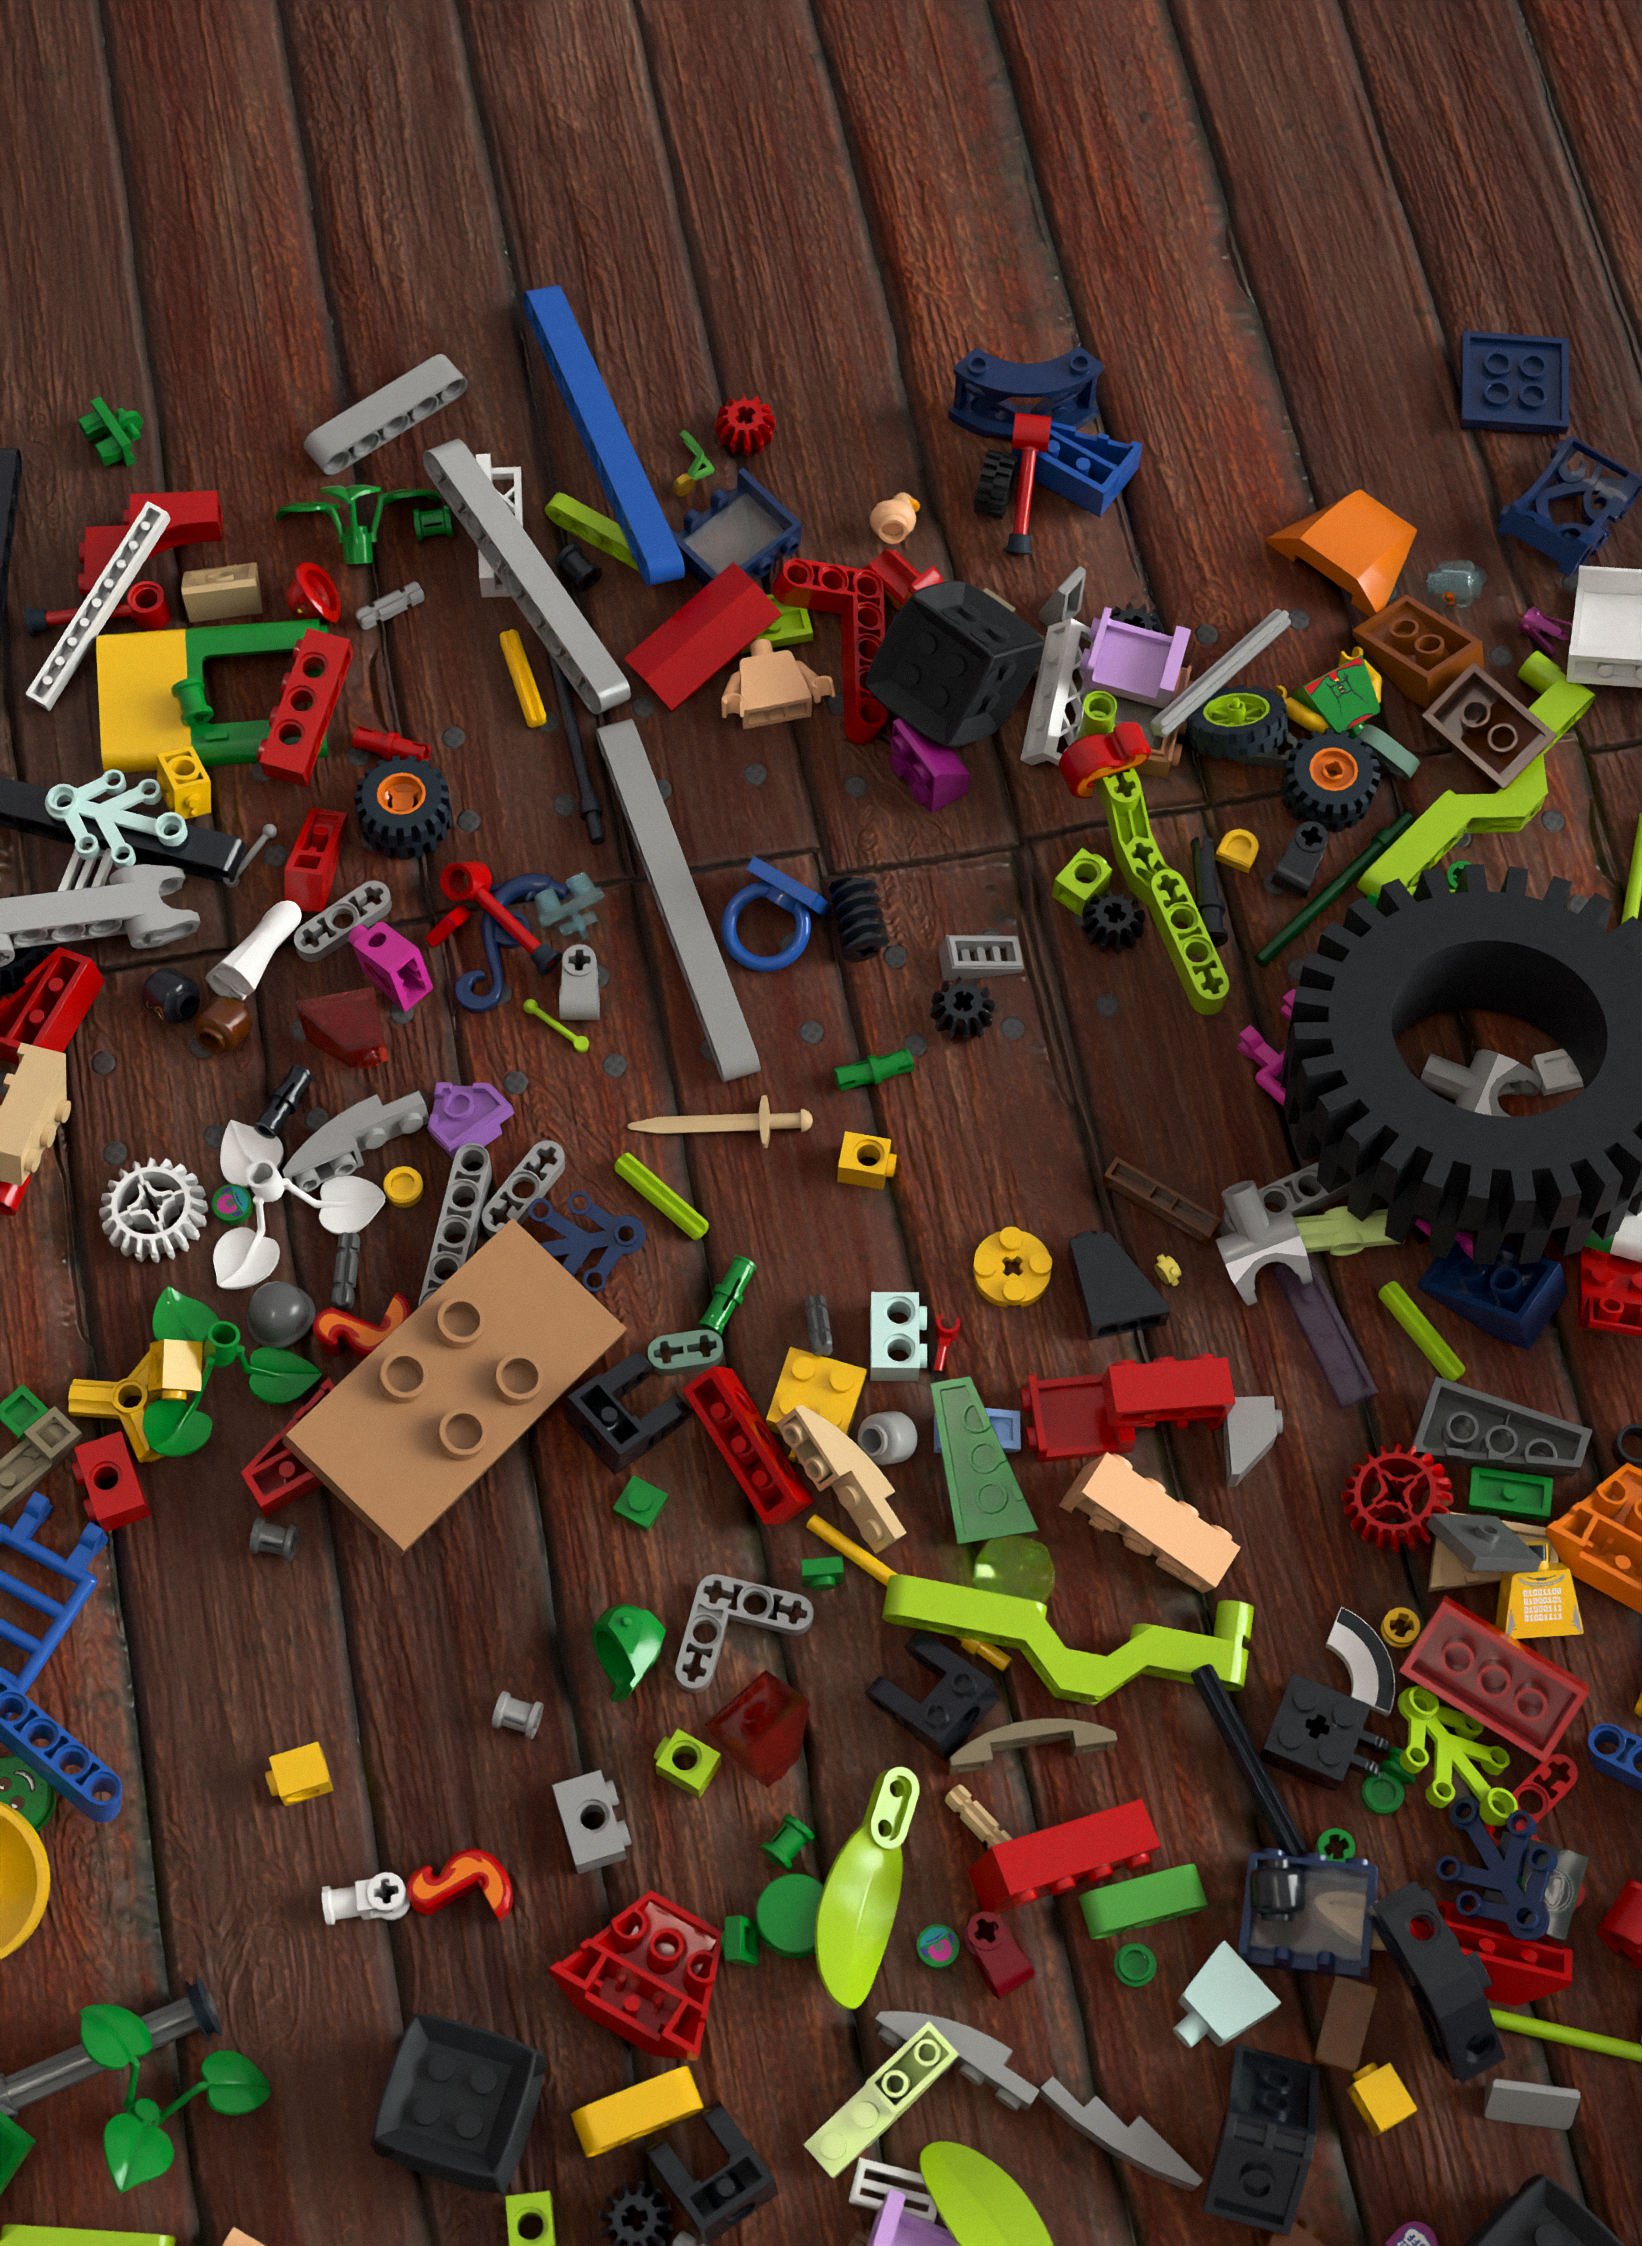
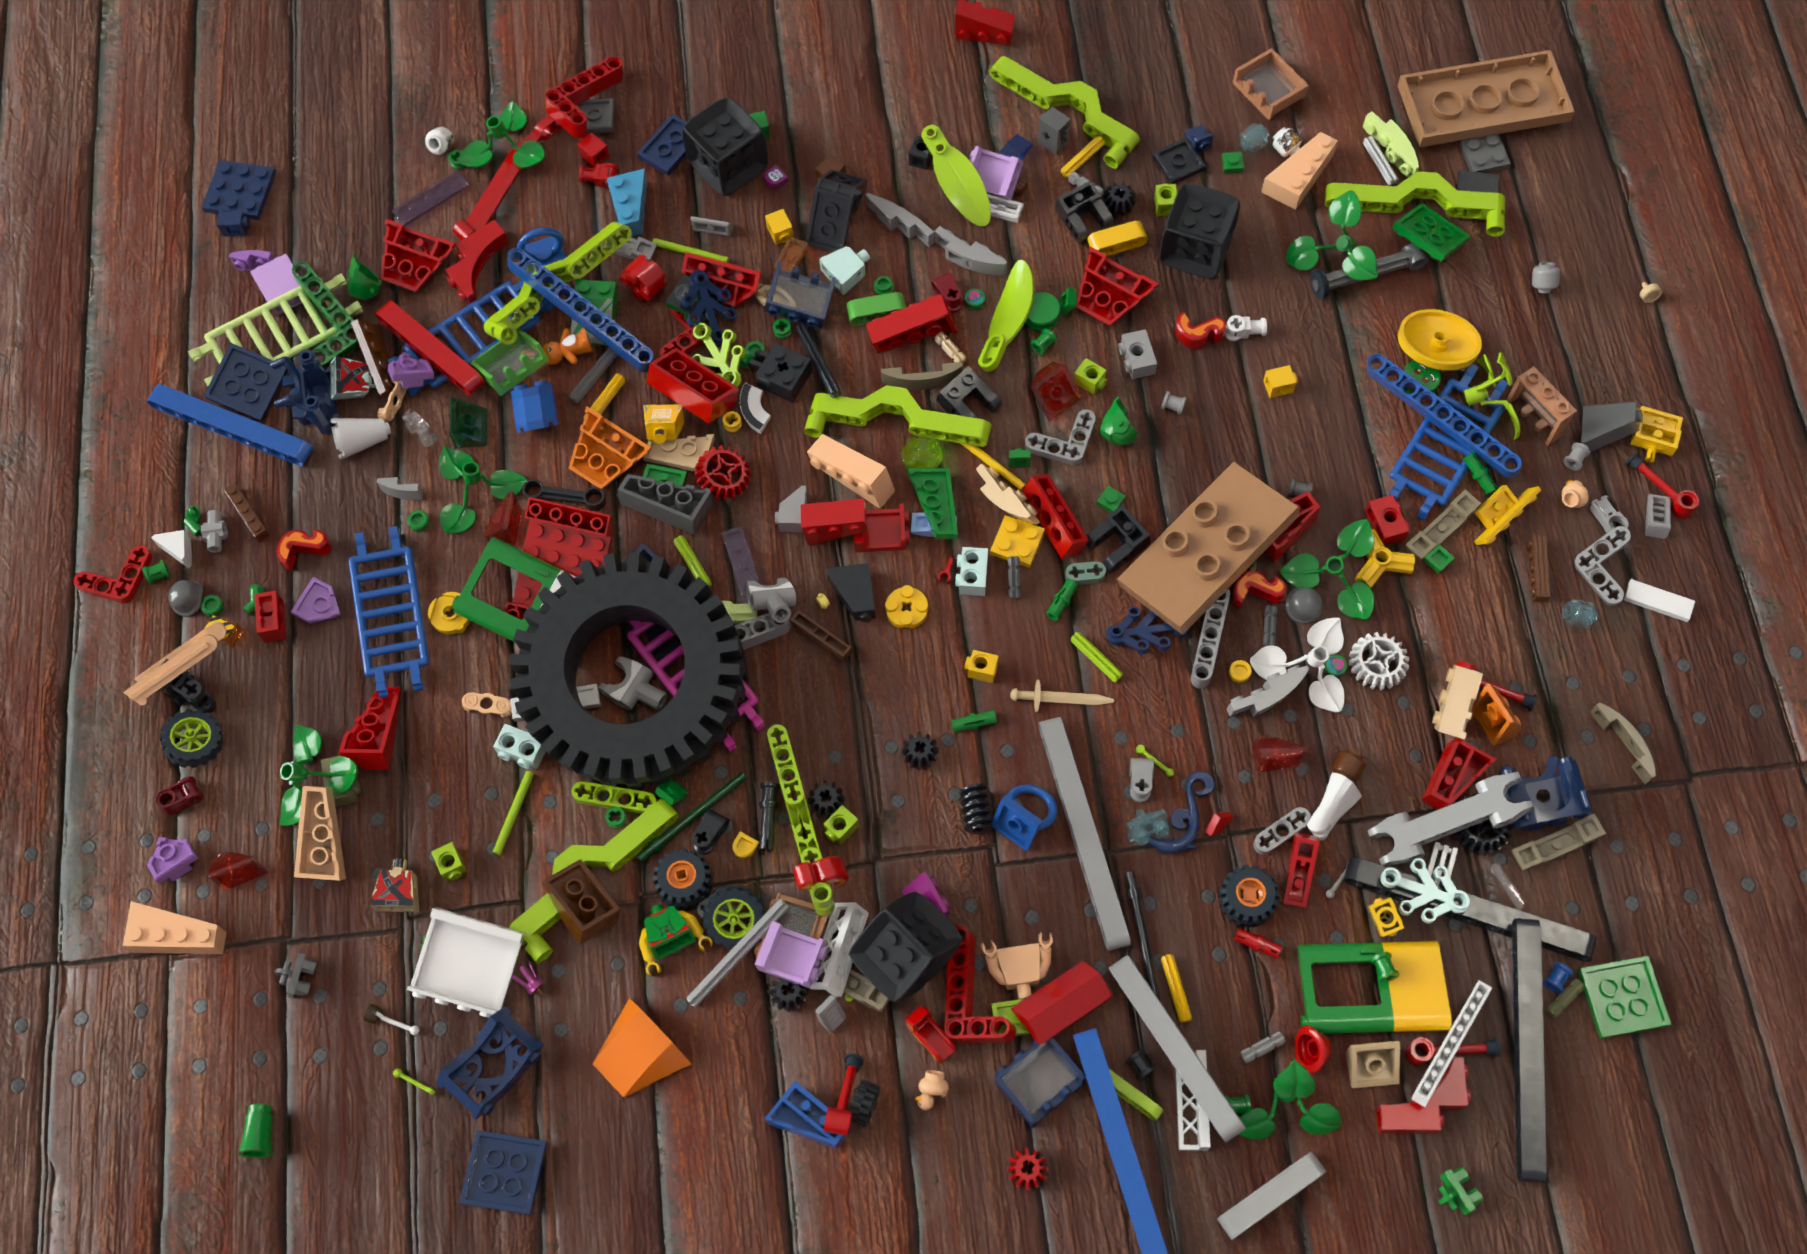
camera: 170 degrees left, 0 degrees up
(170, 996) = (1381, 785): black head -> none
(175, 1368) = (1359, 563): yellow brick -> none
(271, 1117) = (1310, 718): black pin -> none
(297, 761) = (1299, 991): red brick -> none
(385, 952) = (1254, 794): dark pink torso -> none
(467, 1115) = (1207, 706): medium lavender plate -> none
(478, 890) = (1208, 842): red piece -> none
(548, 1173) = (1173, 655): light grey beam -> none
(686, 482) = (1058, 1155): bright green piece -> none
(881, 2100) = (1007, 234): yellowish green slope -> none
(887, 1437) = (981, 517): light grey head -> none
(980, 968) = (906, 793): light grey slope -> none
(987, 382) = (836, 1160): dark blue fence -> none
(1277, 1891) = (814, 296): black head -> none
(1389, 752) = (644, 895): sand green beam -> none
(1418, 649) = (610, 968): dark orange slope -> none
(1441, 1981) = (750, 255): black brick -> none
(1455, 583) = (577, 1015): clear light blue head -> none
(1484, 1543) = (685, 435): dark grey plate -> none

